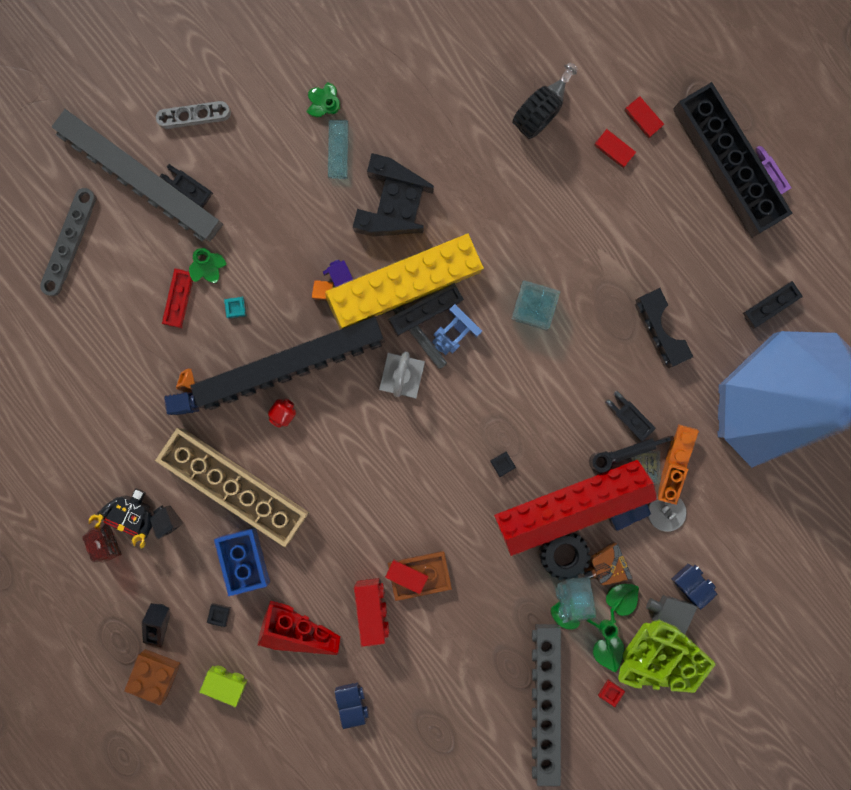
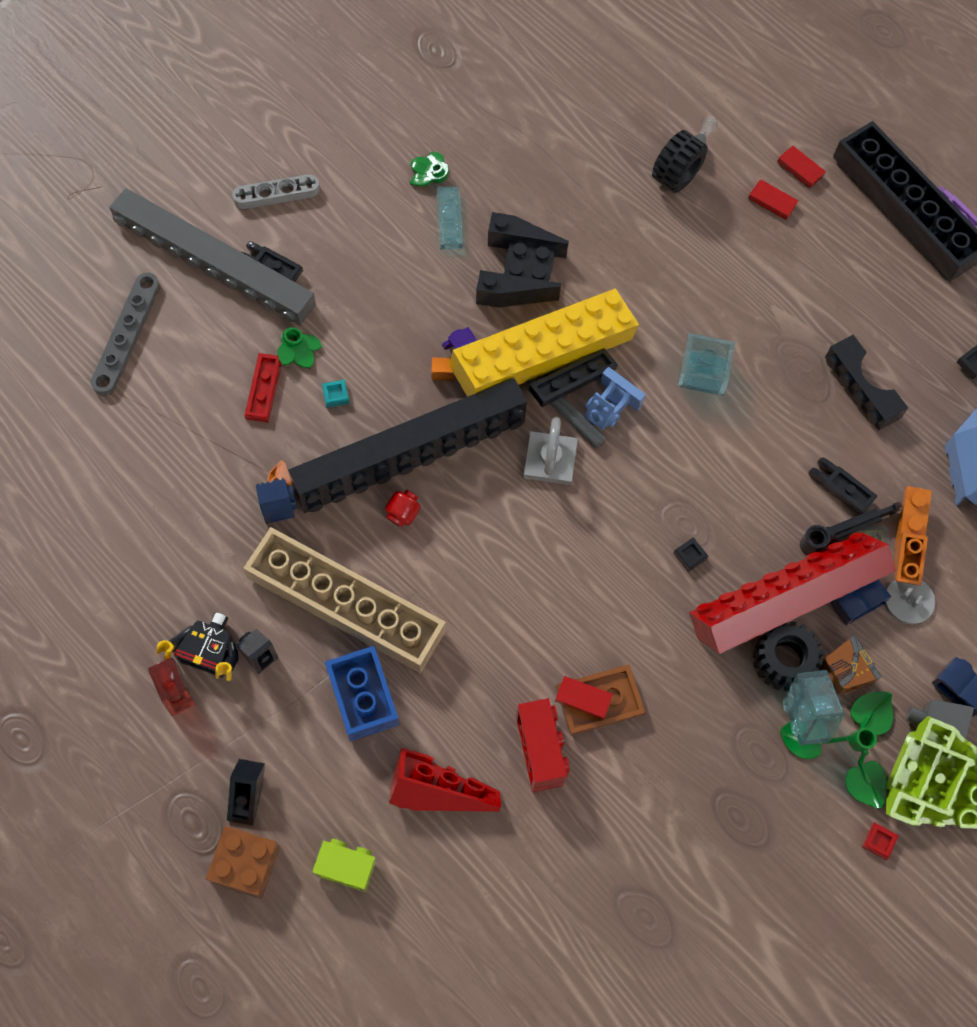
camera: 10 degrees left, 20 degrees down
(218, 615) = (331, 774): black tile -> none
(351, 706) = (524, 883): dark blue brick -> none
(550, 774) = (819, 957): dark grey brick -> none

